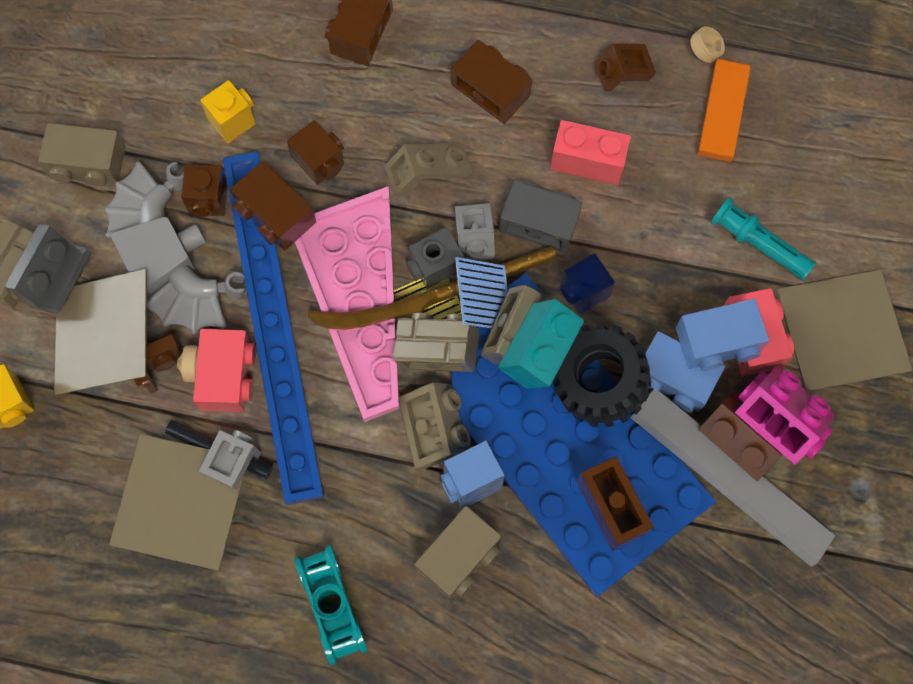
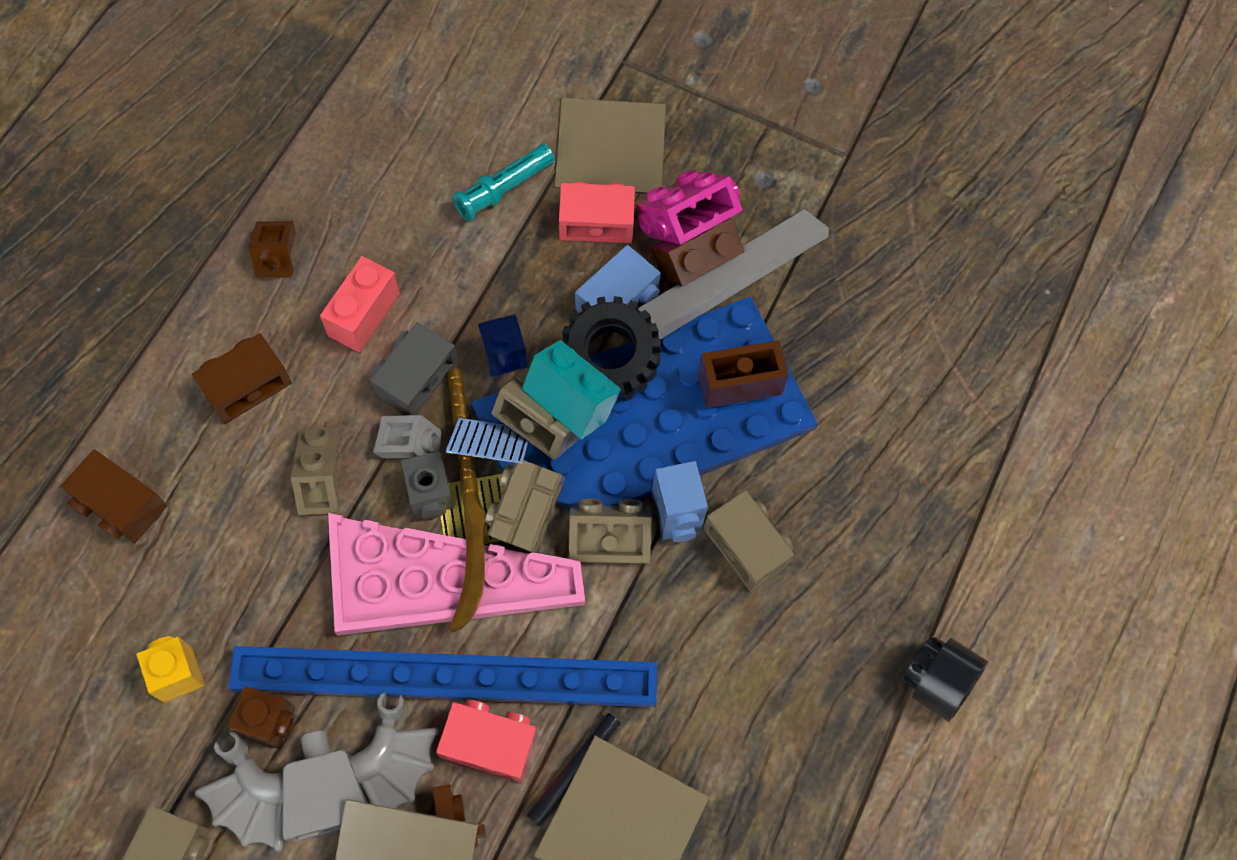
camera: 80 degrees left, 5 degrees down
(188, 362) = (469, 777): tan tile -> none
(229, 458) = (593, 752): light grey bracket -> none
(272, 206) = (314, 638): reddish brown brick -> none
(317, 152) = (259, 580): reddish brown brick -> none
(320, 578) = (804, 677): teal piece -> none
(707, 44) = (279, 166): tan tile -> none
(722, 335) = (600, 233): medium blue brick -> none
(724, 110) = (355, 175): orange tile -> none

